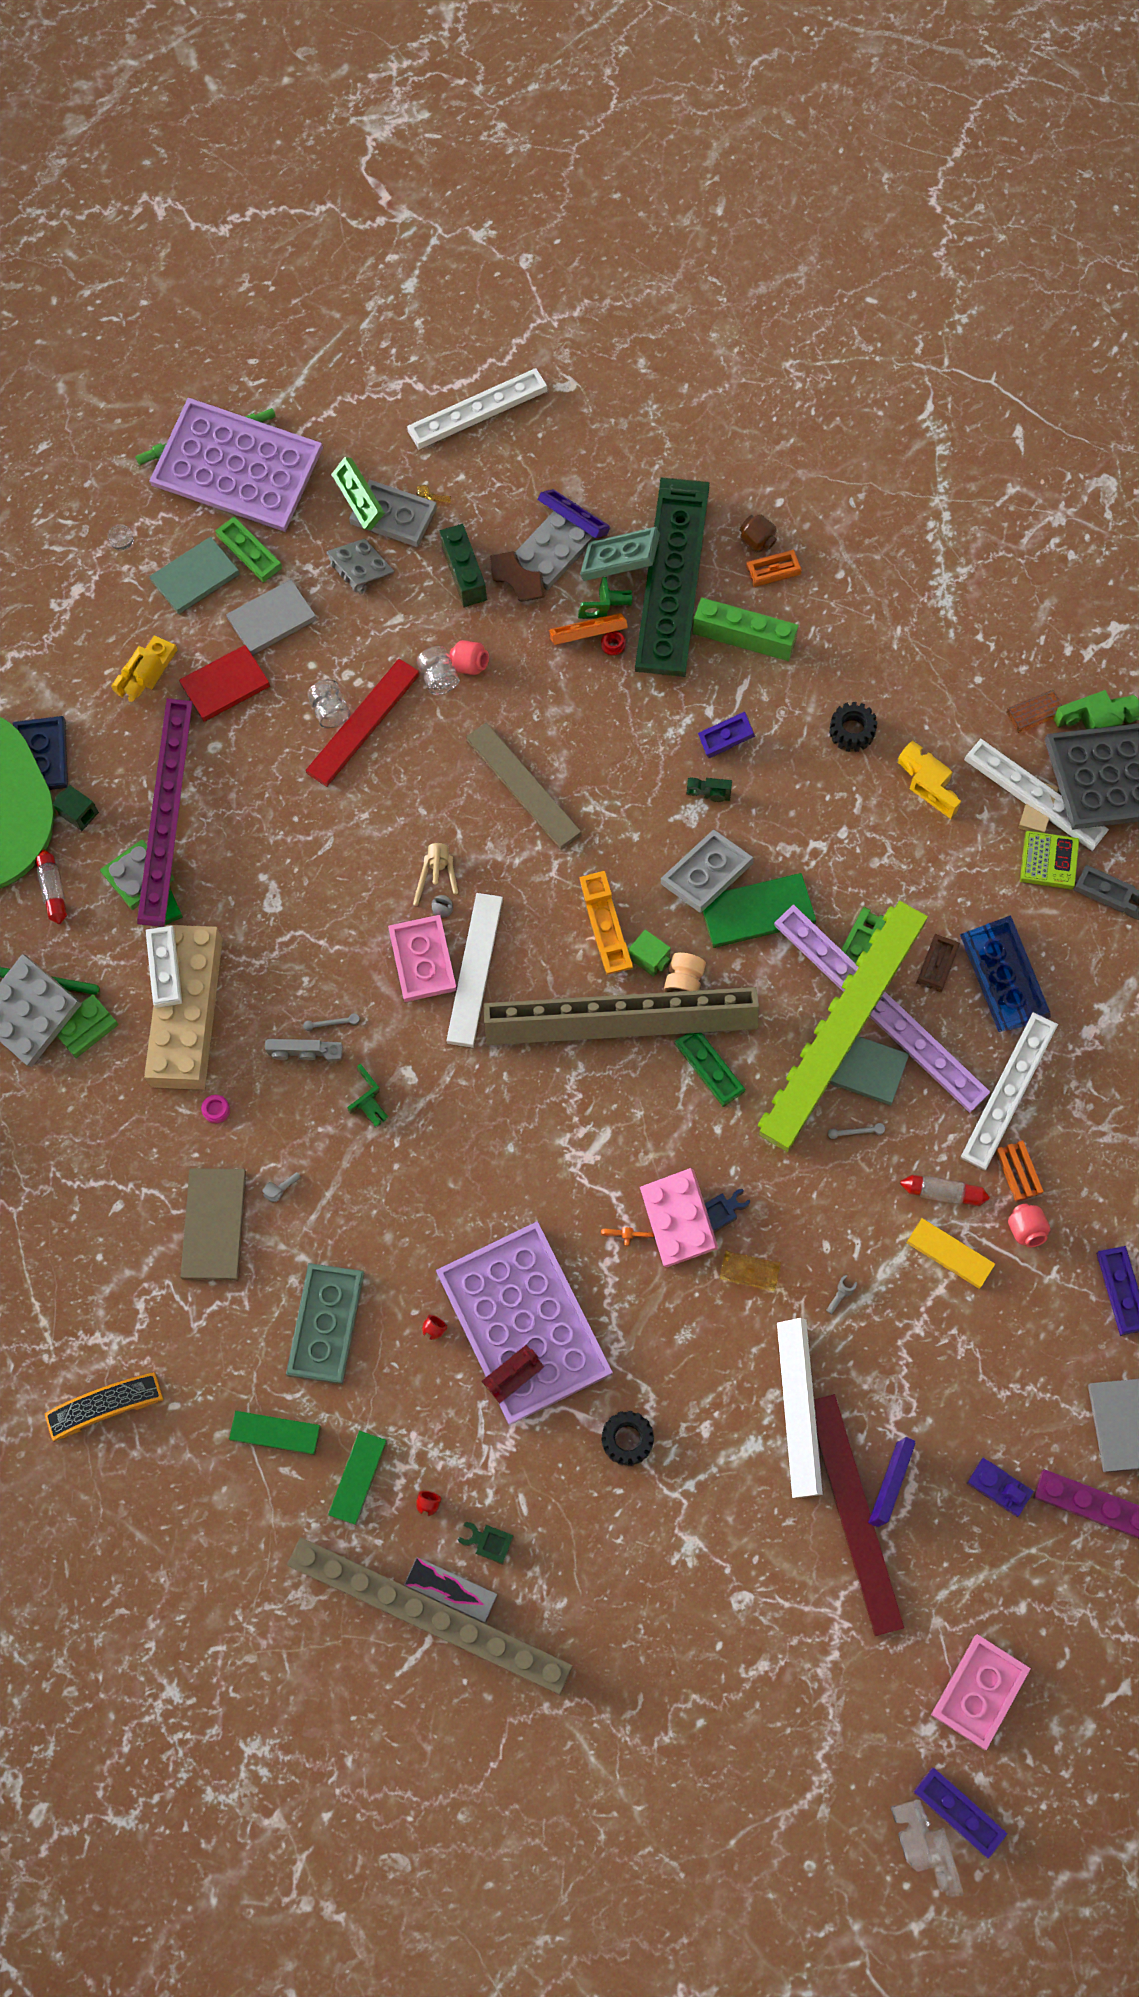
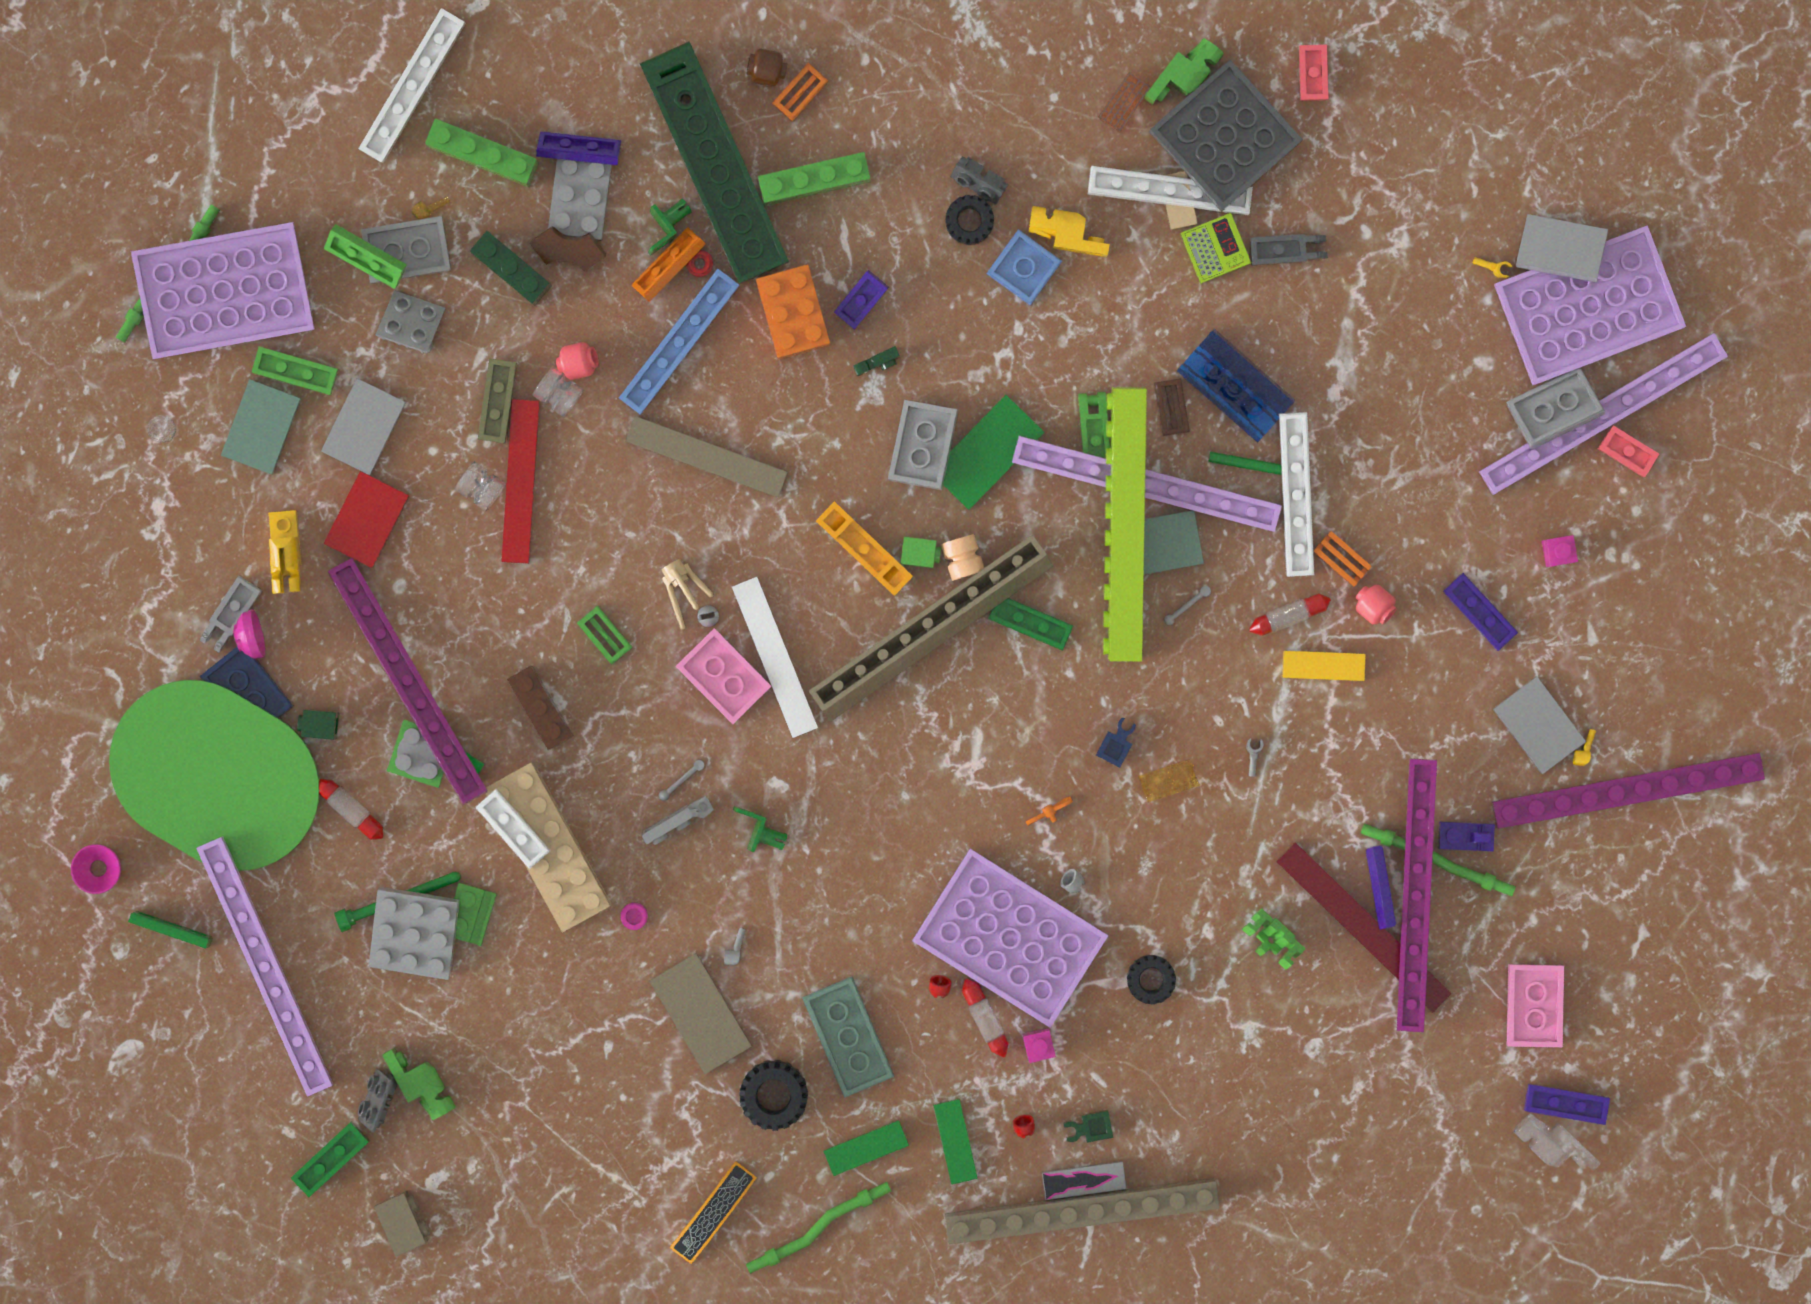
camera: 35 degrees left, 20 degrees up
(70, 690) = (237, 600): none -> light grey hinge
(72, 708) = (249, 635): none -> dark pink piece
(127, 1479) = (863, 1198): none -> bright green bar
(209, 1314) = (773, 1119): none -> black tyre
(256, 894) = (540, 707): none -> reddish brown brick
(350, 892) = (619, 652): none -> bright green tile
(386, 653) = (497, 400): none -> olive plate
(456, 1380) = (985, 1018): none -> piece
(488, 1433) = (1038, 1045): none -> dark pink brick
(498, 477) = (482, 152): none -> bright green brick
(513, 1373) = (1030, 987): dark red hinge -> none
(558, 688) = (679, 341): none -> medium blue plate
(609, 1306) = (1072, 881): none -> light grey hinge
(620, 553) = (654, 173): sand green tile -> none
(664, 714) = (793, 312): none -> orange brick
(679, 1217) = (1084, 773): bright pink plate -> none
(770, 1465) = (1280, 935): none -> bright green piece
(799, 1408) = (1273, 871): white tile -> none
(875, 697) = (968, 175): none -> dark grey hinge
(876, 788) = (1024, 267): none -> medium blue tile
(921, 1511) = (1416, 895): none -> magenta plate
(976, 1042) = (1245, 463): none -> green bar
(997, 1540) = (1486, 880): none -> bright green bar

